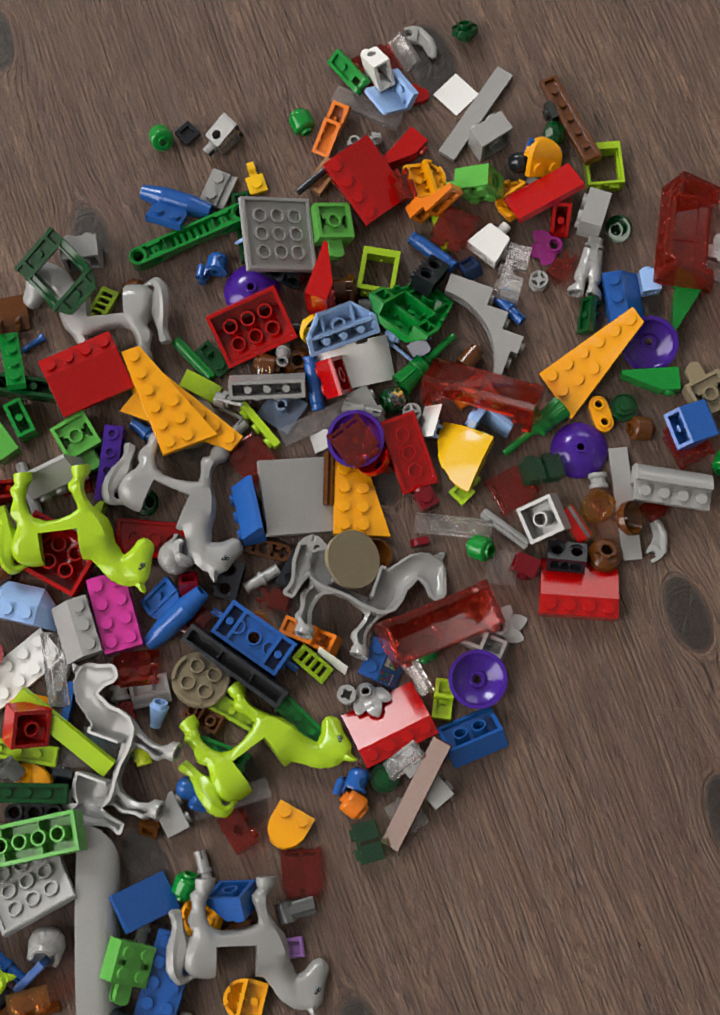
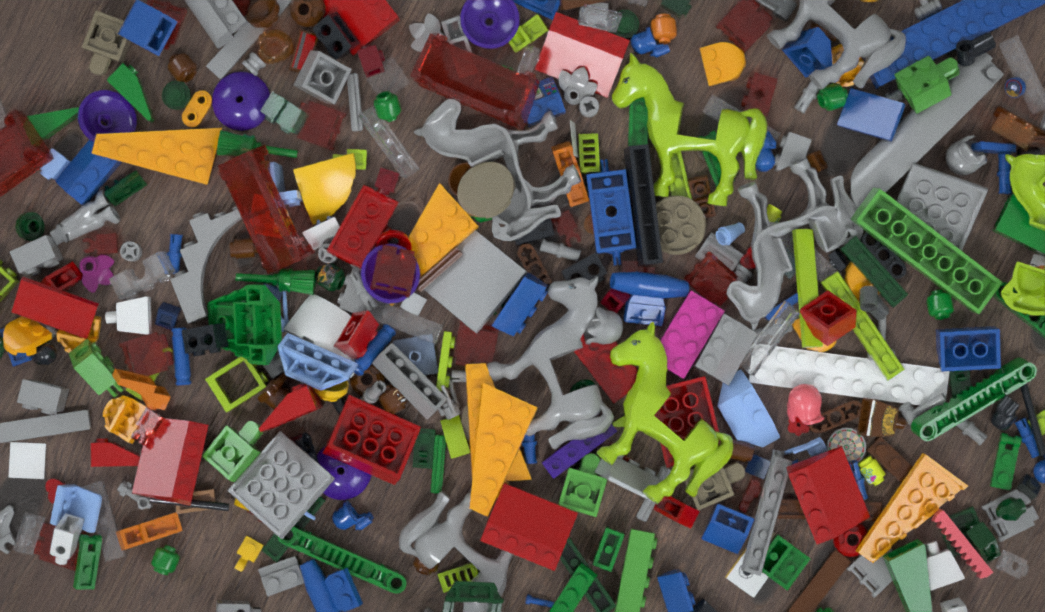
camera: 135 degrees left, 10 degrees up
(419, 542) = (424, 156): dark red tile -> none

